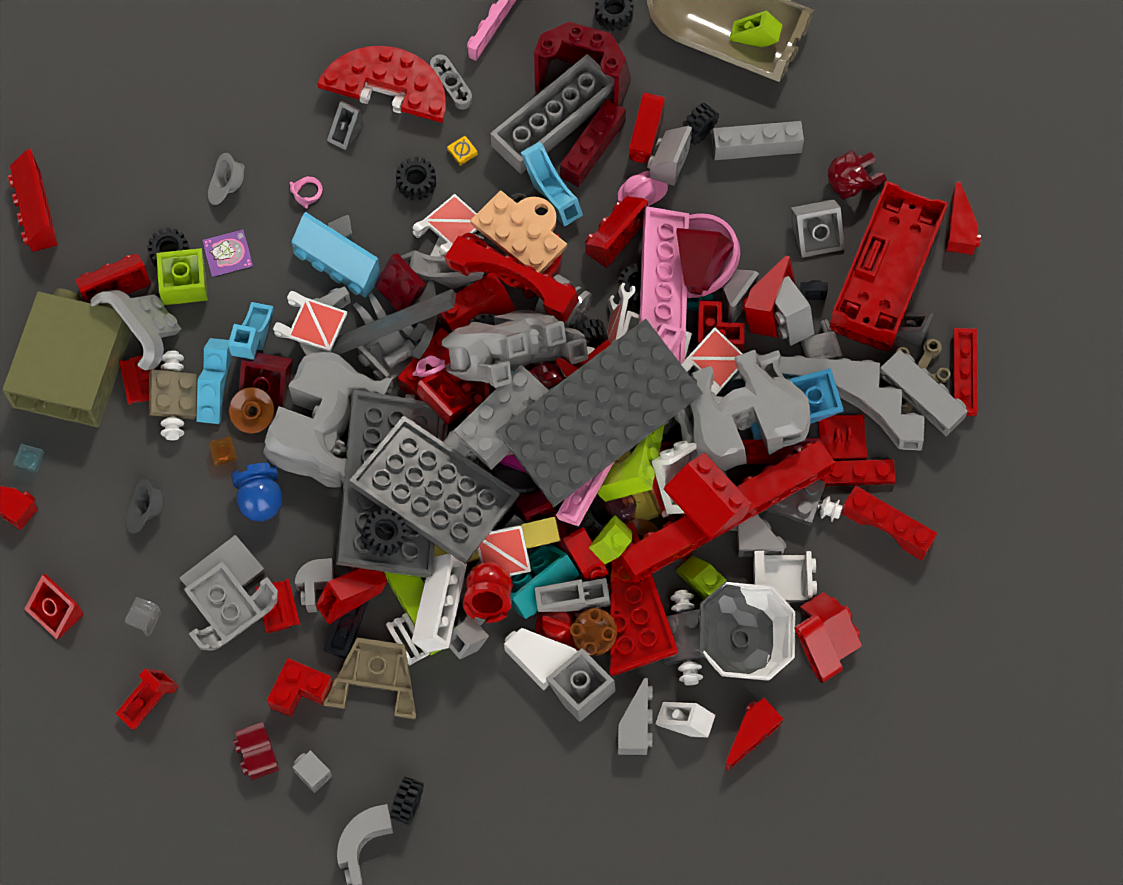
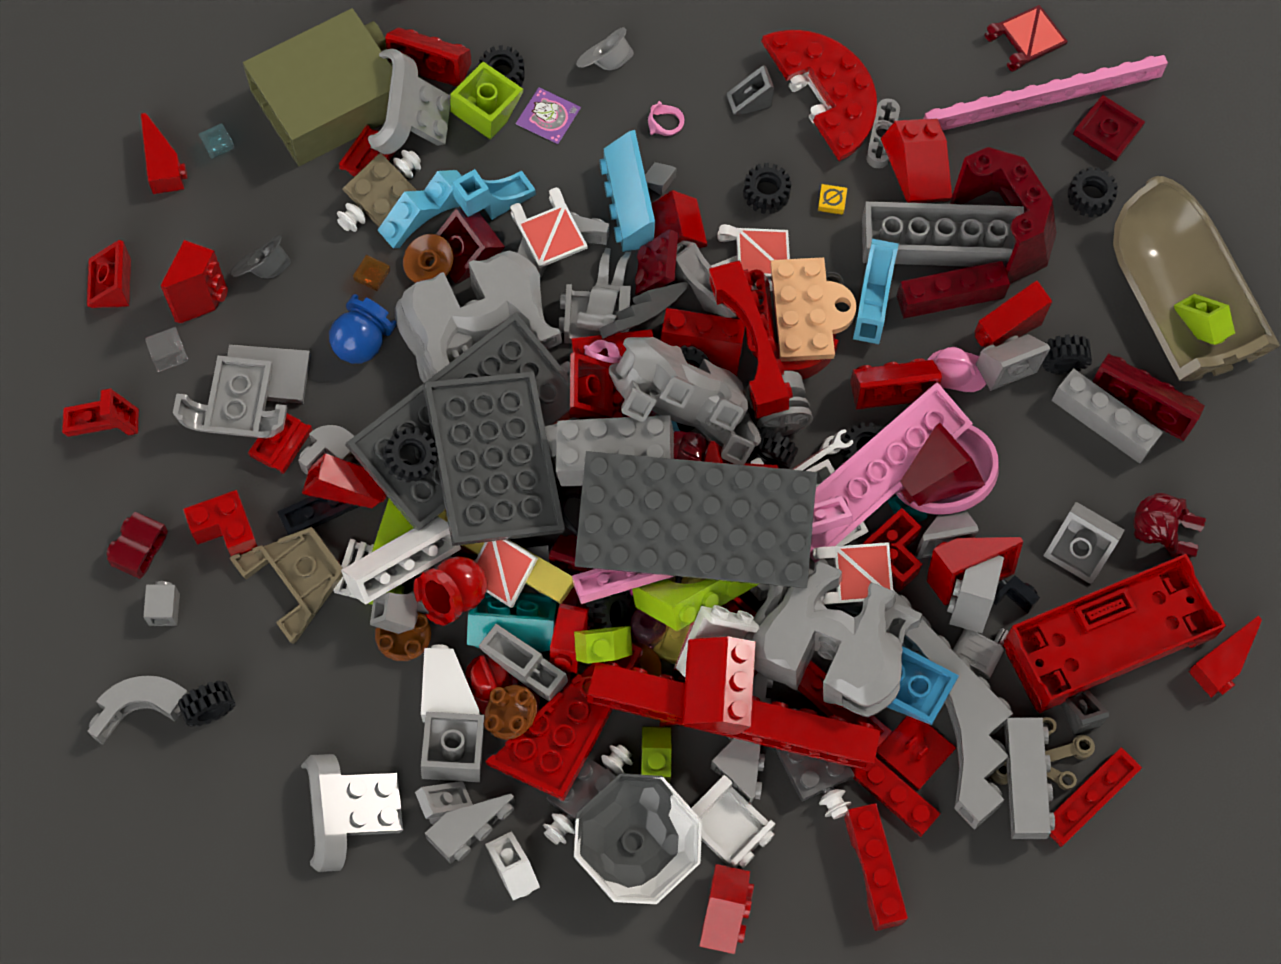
camera: 40 degrees right, 0 degrees up
(123, 554) = (193, 282): none -> red slope
(383, 244) = (681, 215): none -> red slope
(394, 322) = (614, 288): dark grey tile -> none
(486, 656) = (406, 644): none -> dark orange dish
(493, 79) = (919, 159): none -> red slope
(556, 778) = (348, 808): none -> piece
(606, 722) = (442, 798): none -> light grey slope
(756, 726) = (565, 932): red slope -> none
(771, 107) = (1149, 397): none -> dark red slope
(818, 648) = (689, 917): beam -> none

